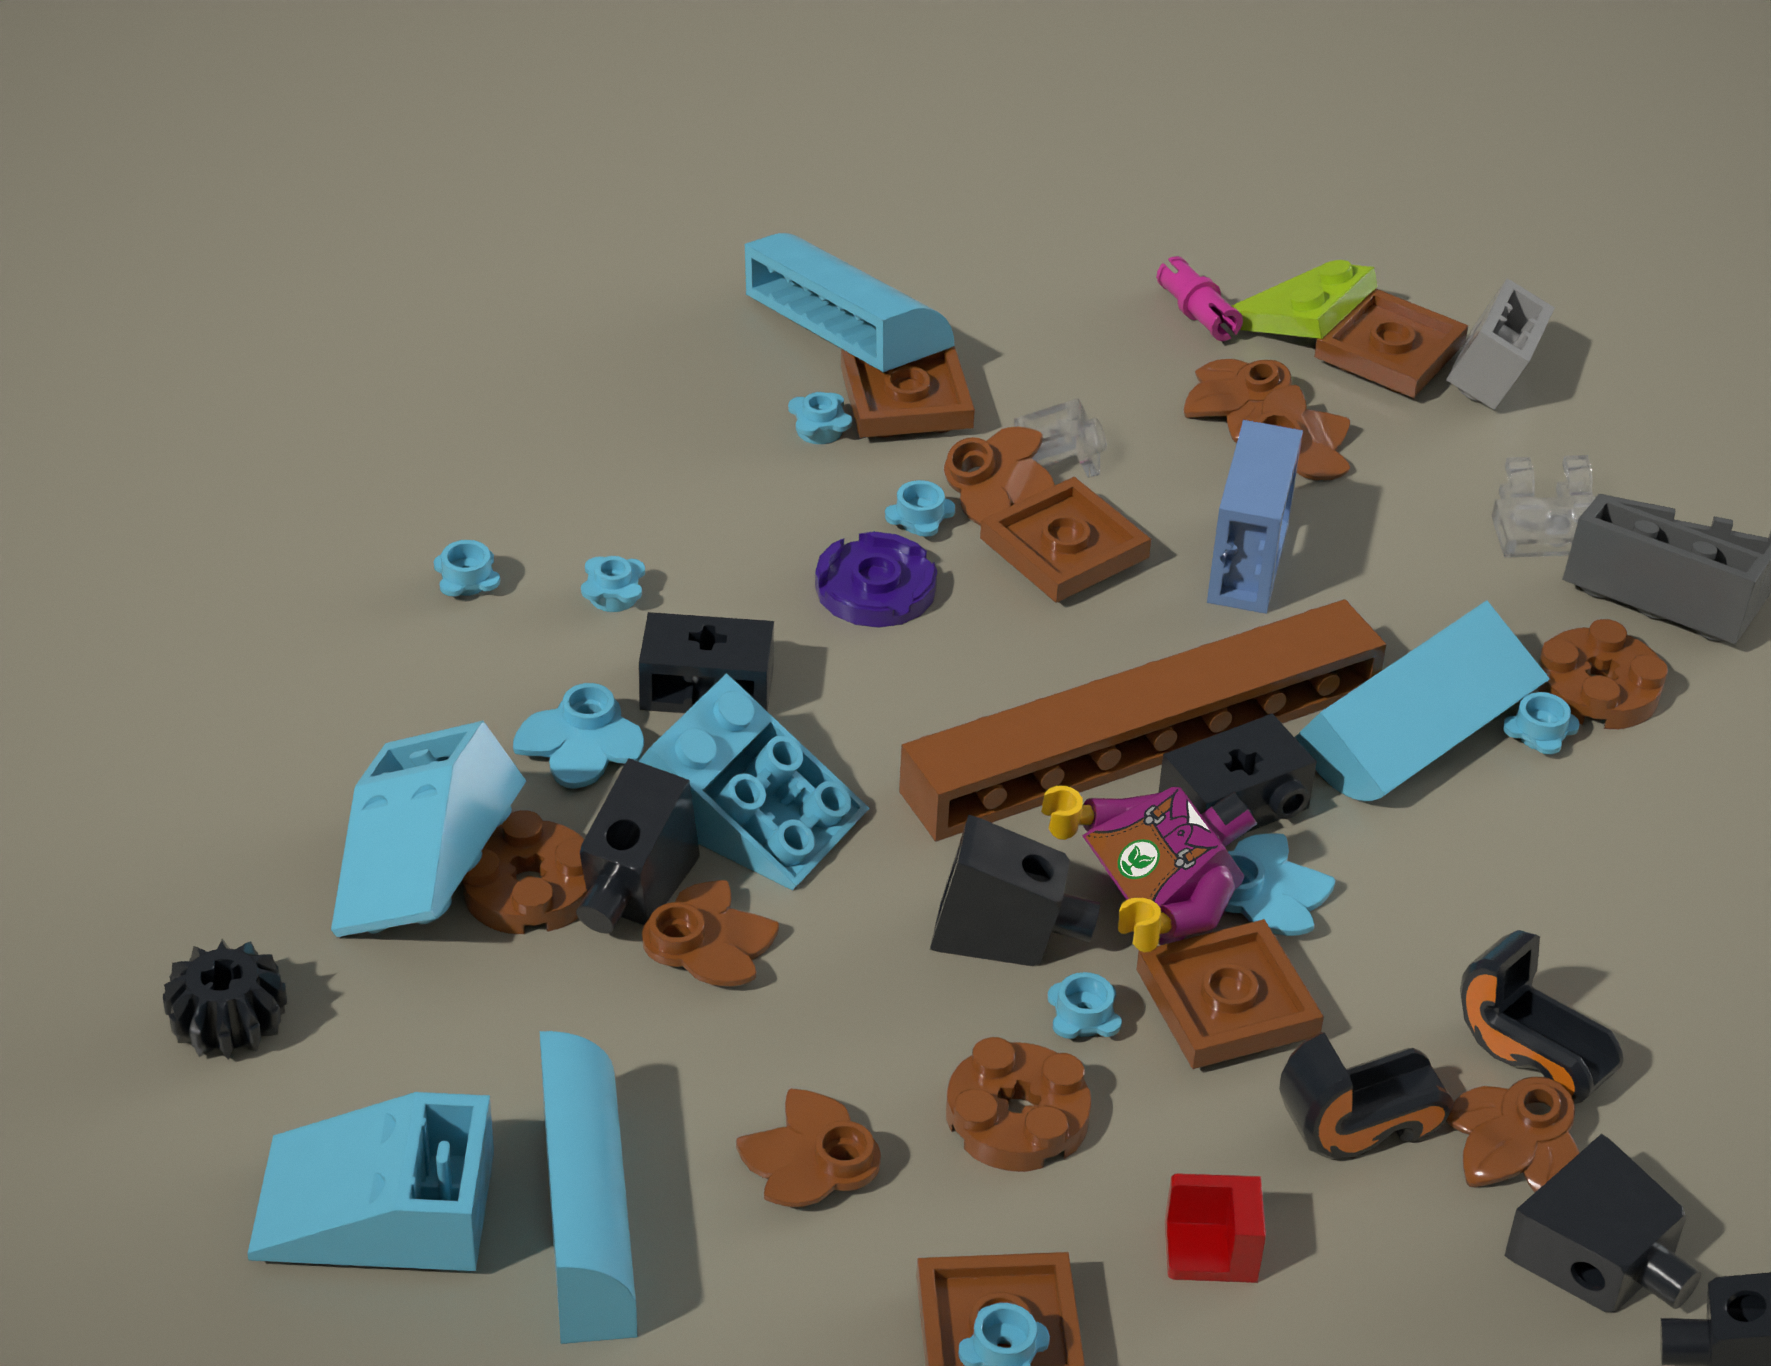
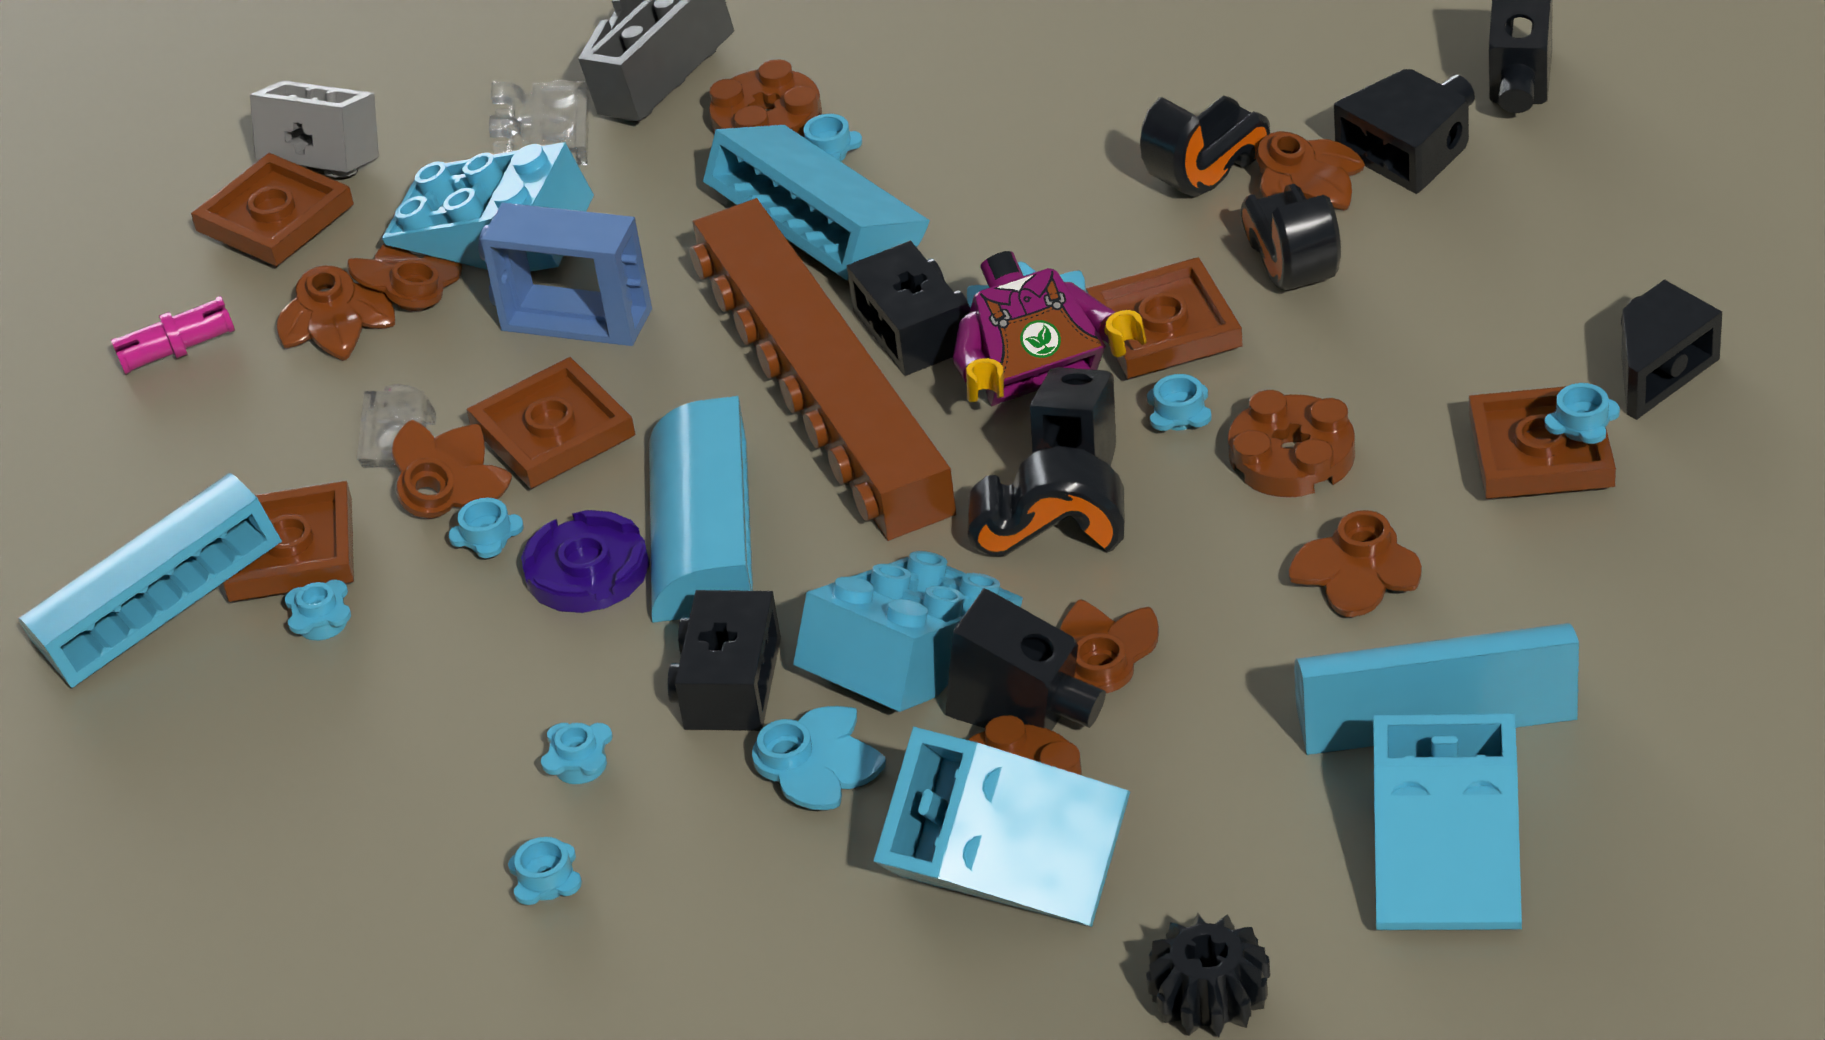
camera: 80 degrees left, 0 degrees up
(898, 890) = (1045, 492): none -> black animal
(928, 649) = (698, 505): none -> medium azure brick
(1215, 1228) = (1428, 321): red panel -> none
(1309, 302) = (207, 251): lime wing -> none
(1384, 479) = (458, 198): none -> medium azure slope

